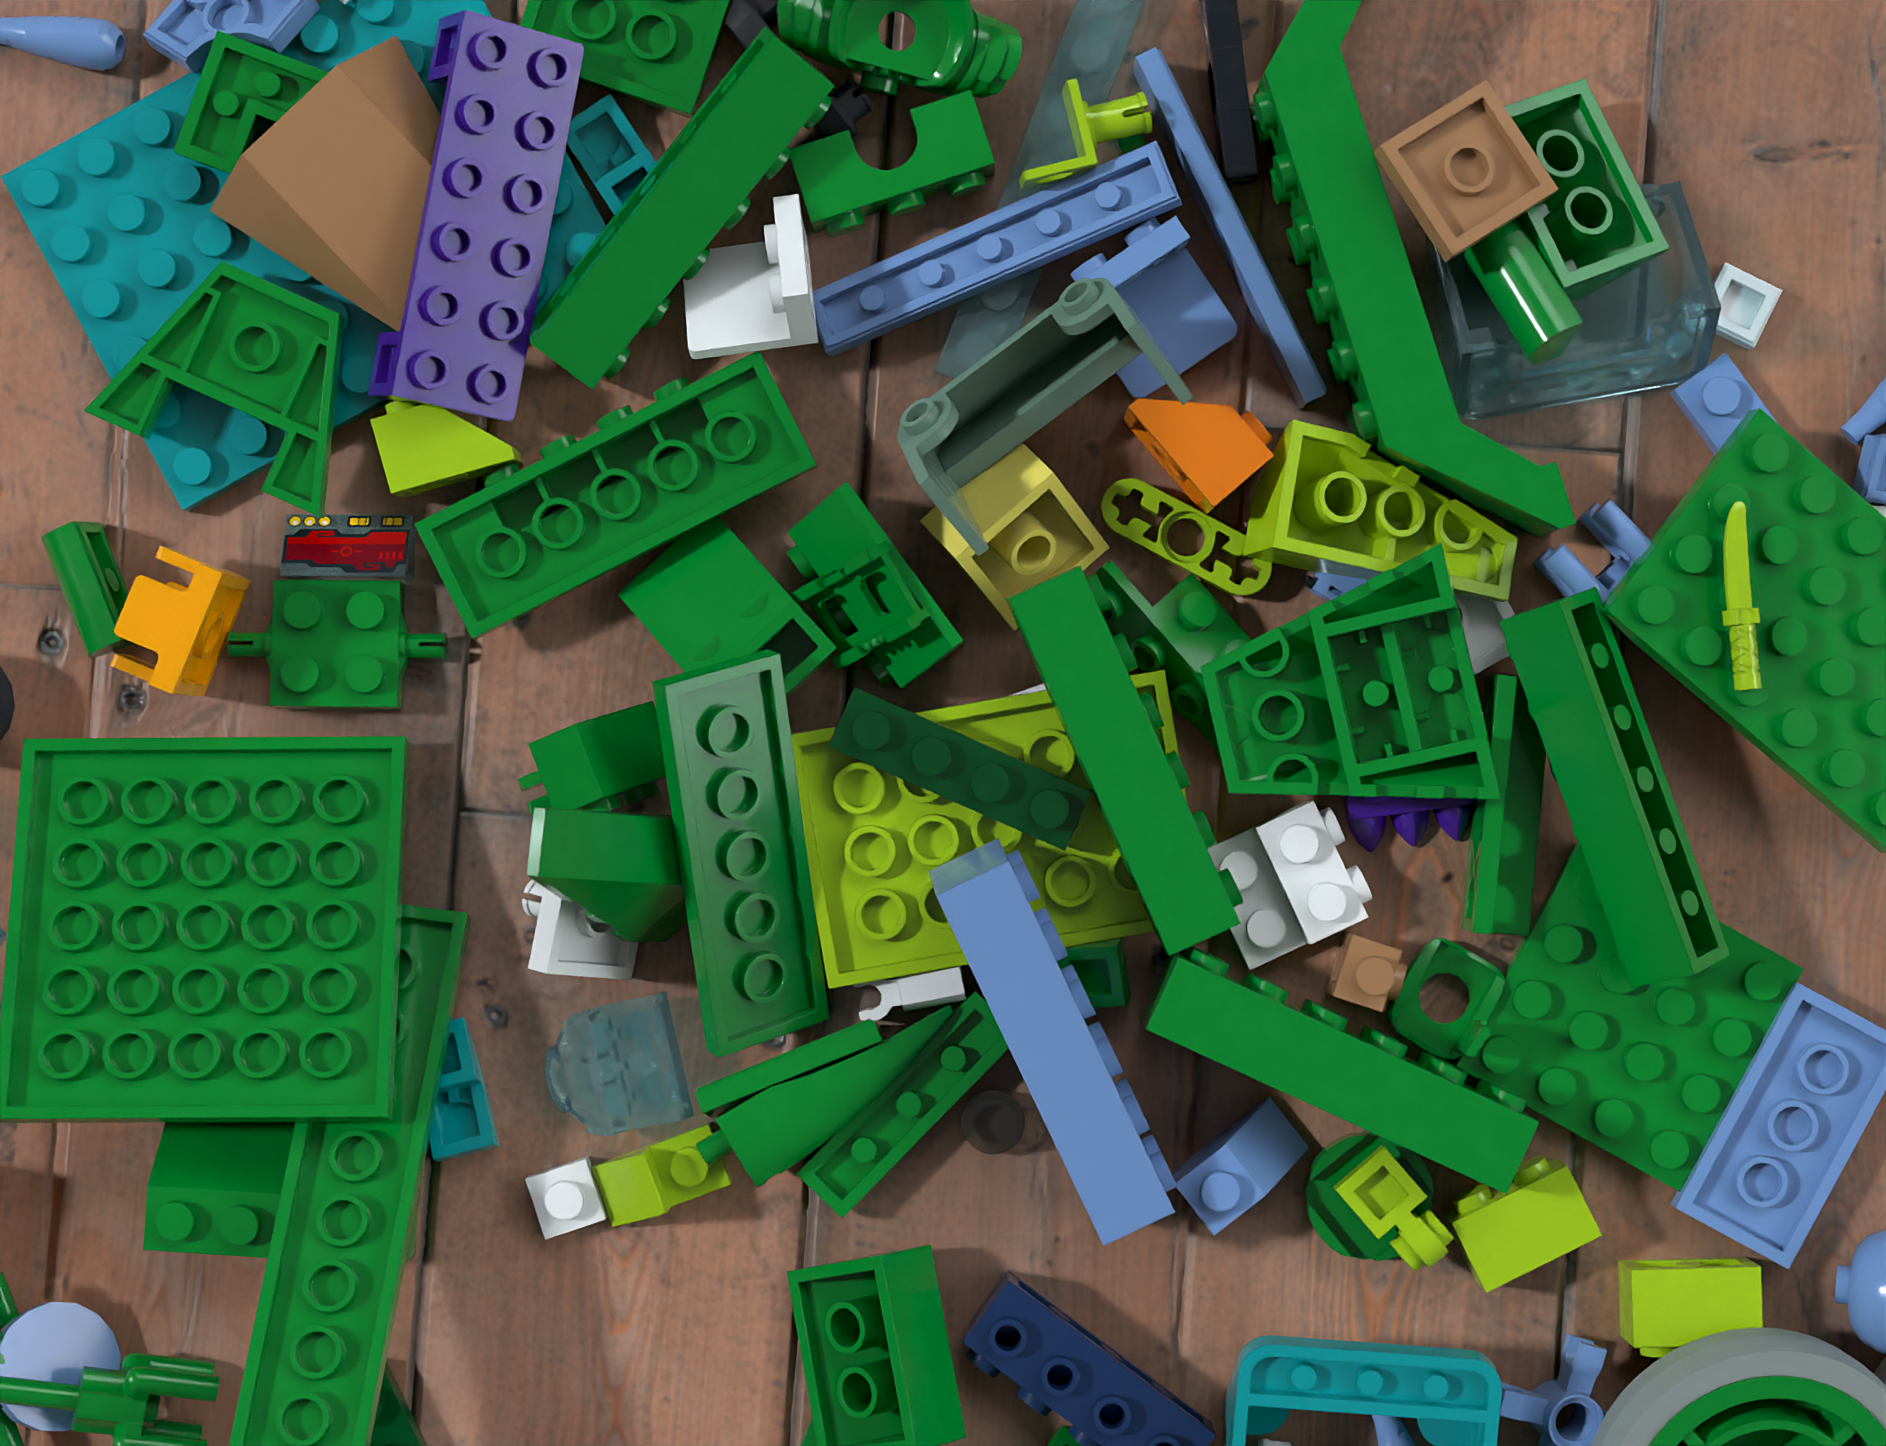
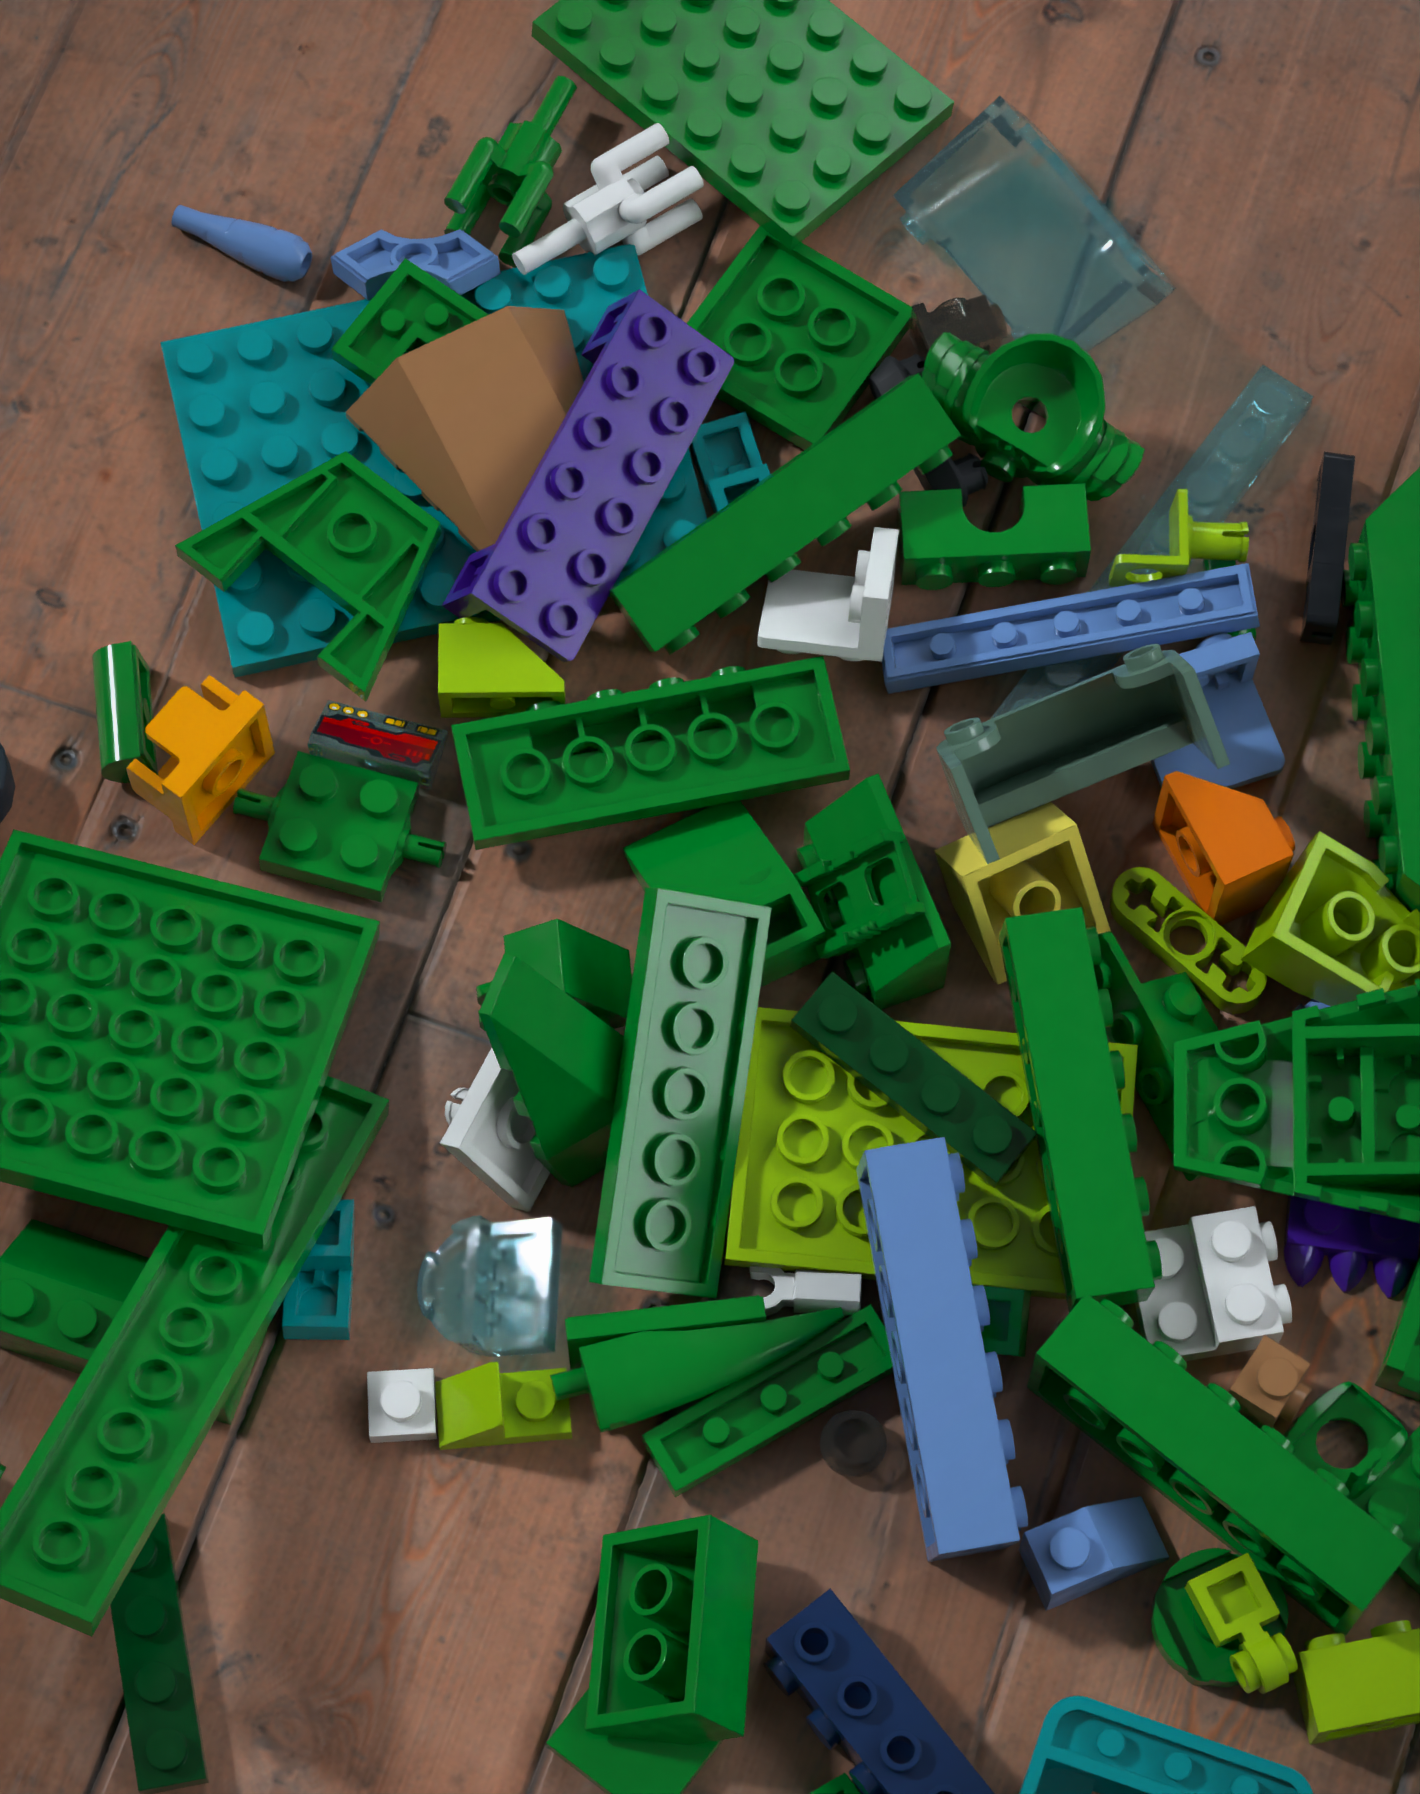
camera: 10 degrees right, 20 degrees down
(1228, 228) = (1298, 670): medium blue tile -> none

